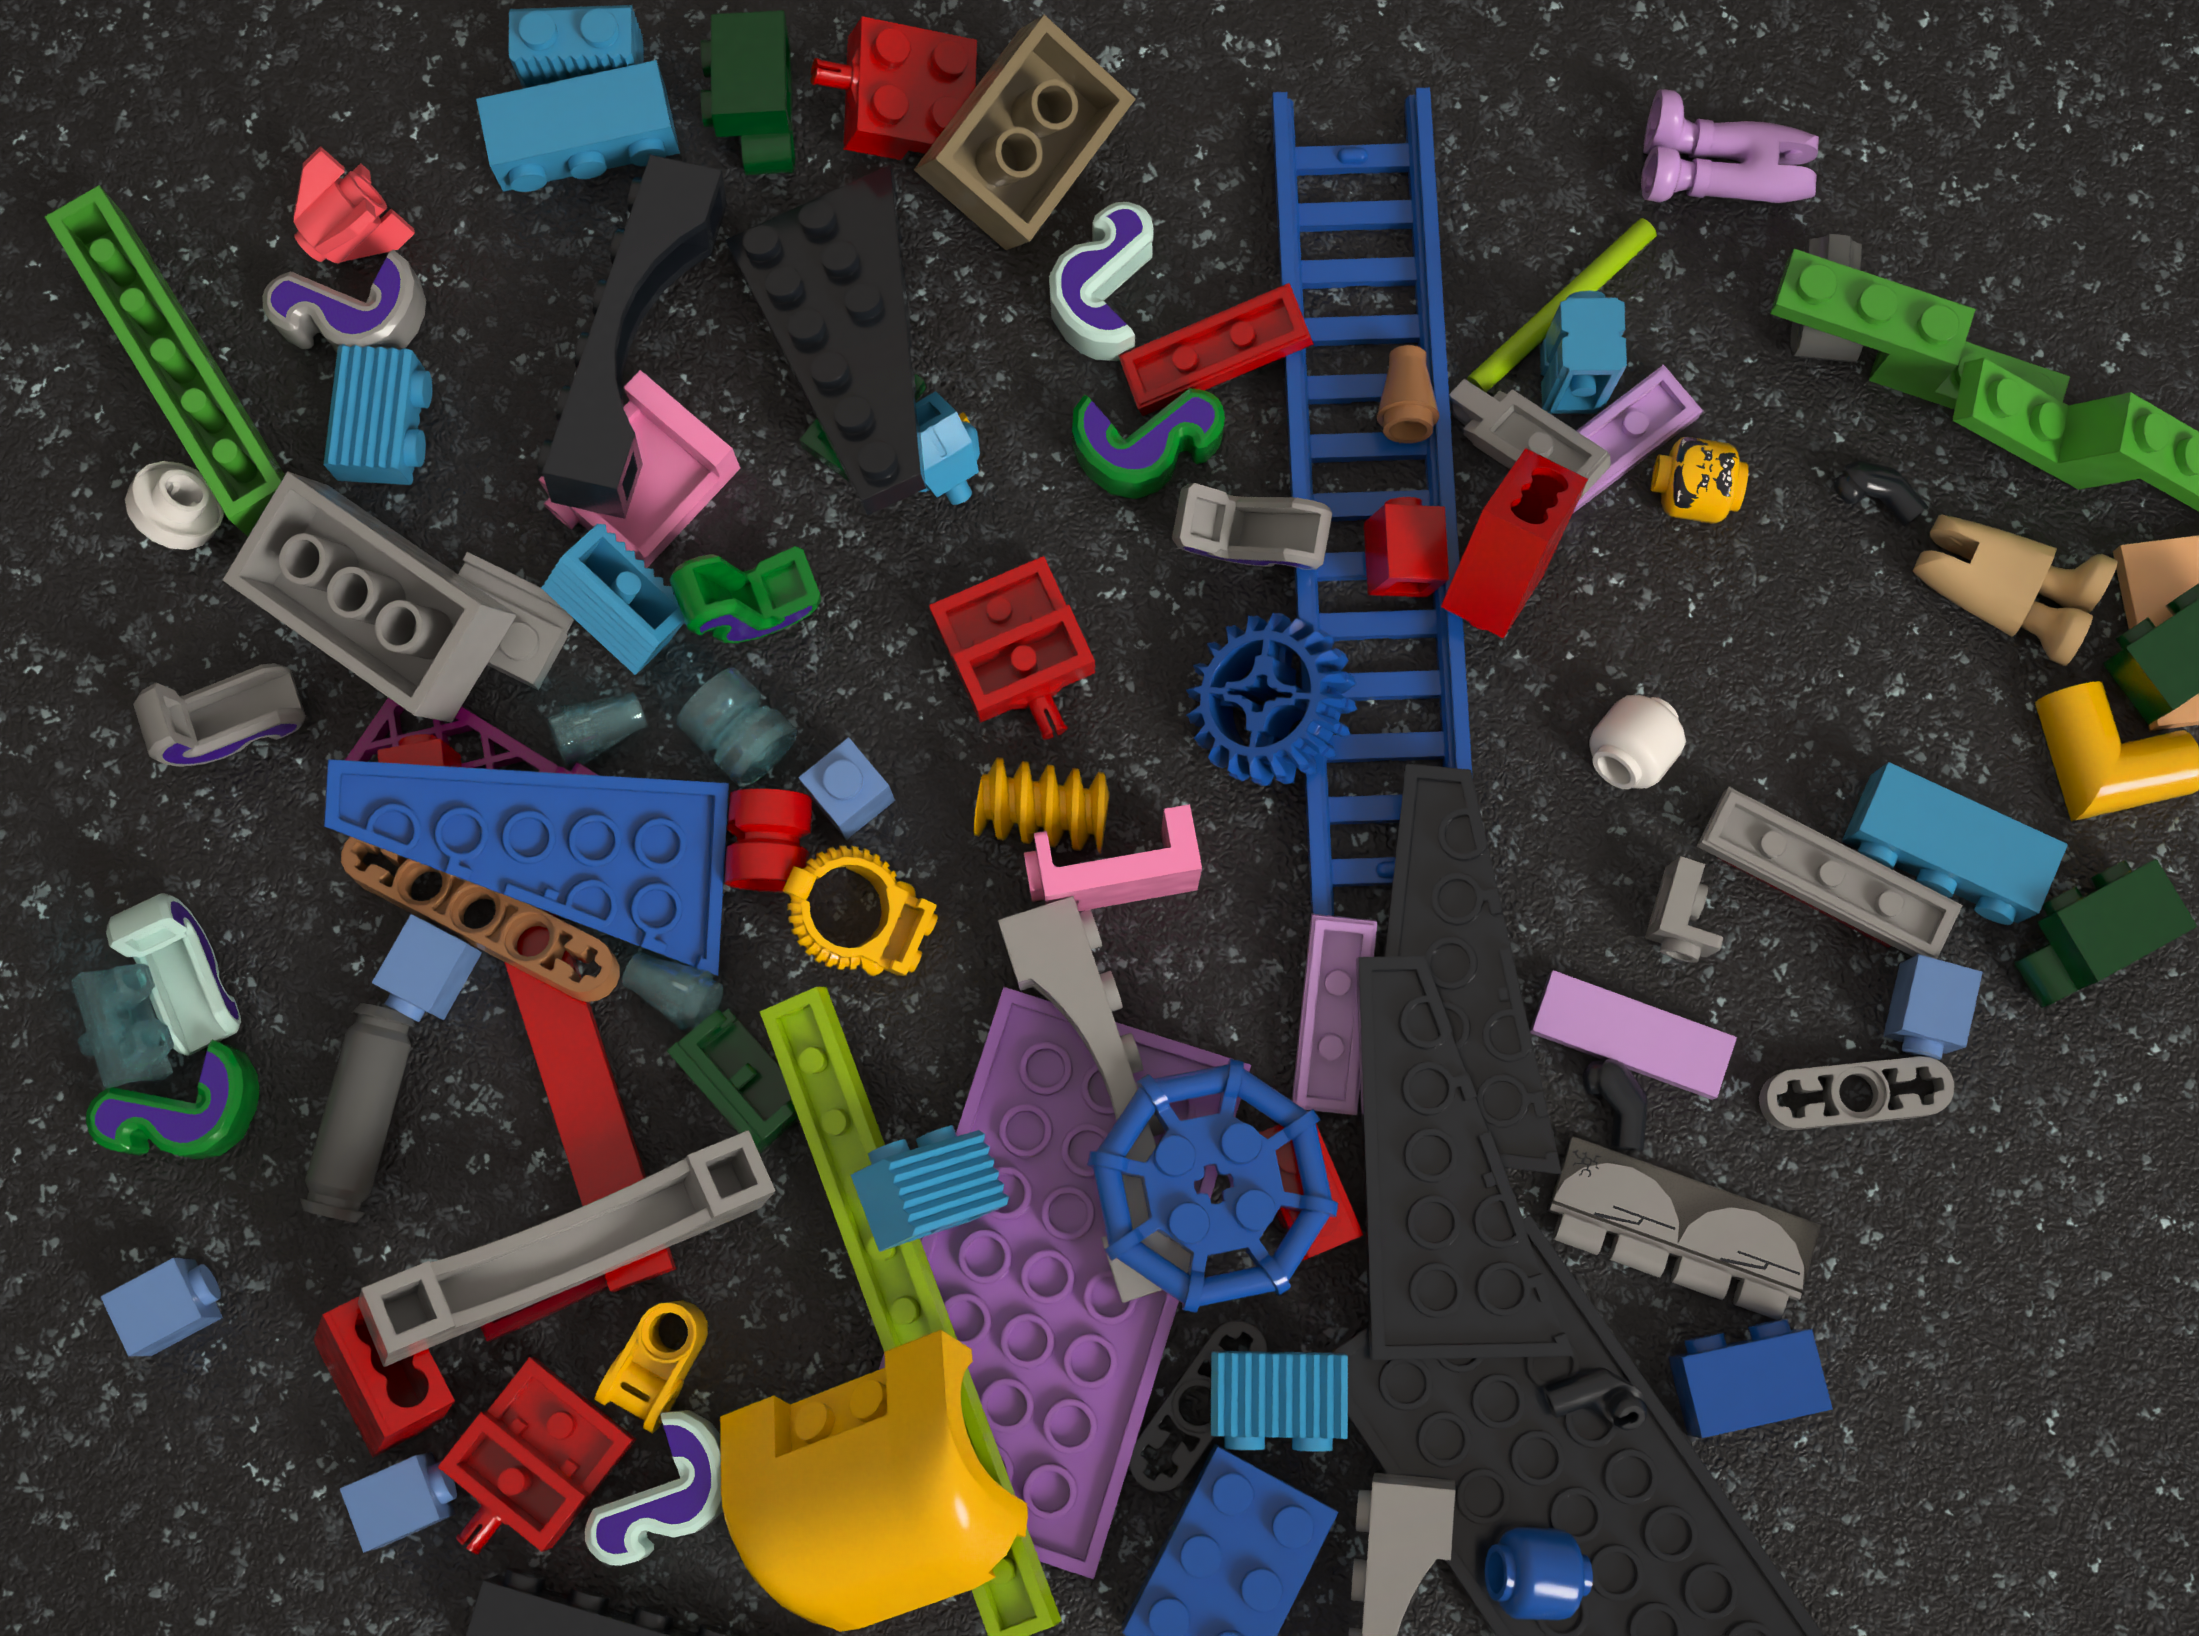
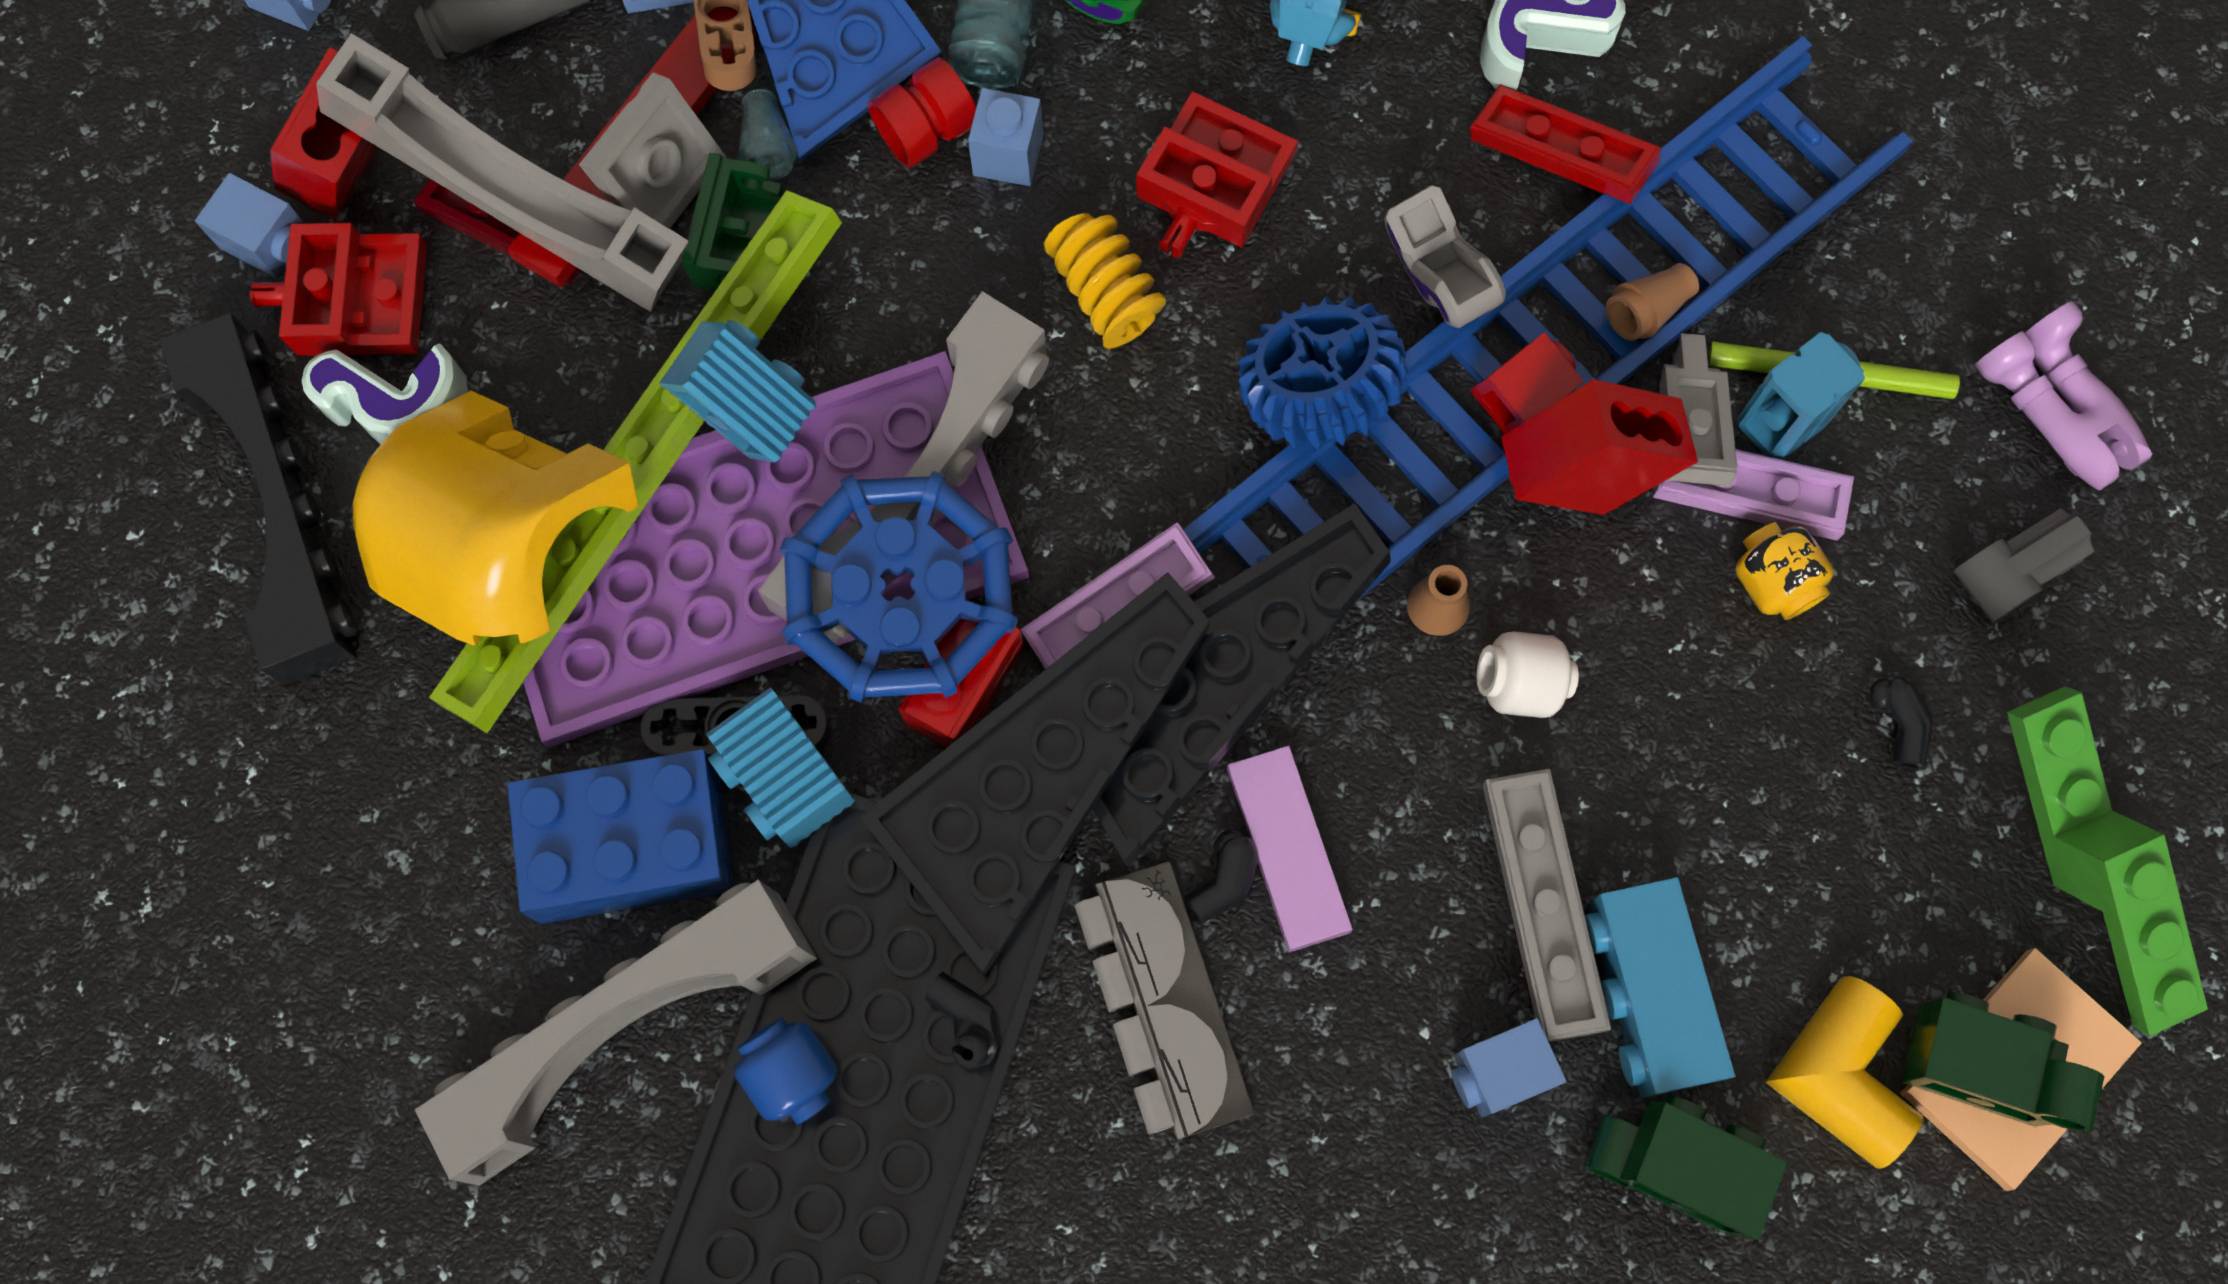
camera: 55 degrees right, 5 degrees down
(632, 1103) = (652, 153): none -> light grey hinge
(646, 1372) = (471, 318): yellow piece -> none
(901, 923) = (928, 254): yellow piece -> none
(1121, 878) = (1123, 391): bright pink panel -> none
(1150, 454) = (1449, 156): green animal -> none
(1518, 771) = (1437, 612): none -> medium nougat cone
(1677, 902) = (1426, 801): light grey bracket -> none
(1749, 1380) = (1077, 1139): blue brick -> none
(1899, 1070) = (1411, 1110): light grey beam -> none
(1915, 332) = (2058, 629): bright green bracket -> none
(2005, 581) = (1920, 869): tan piece -> none

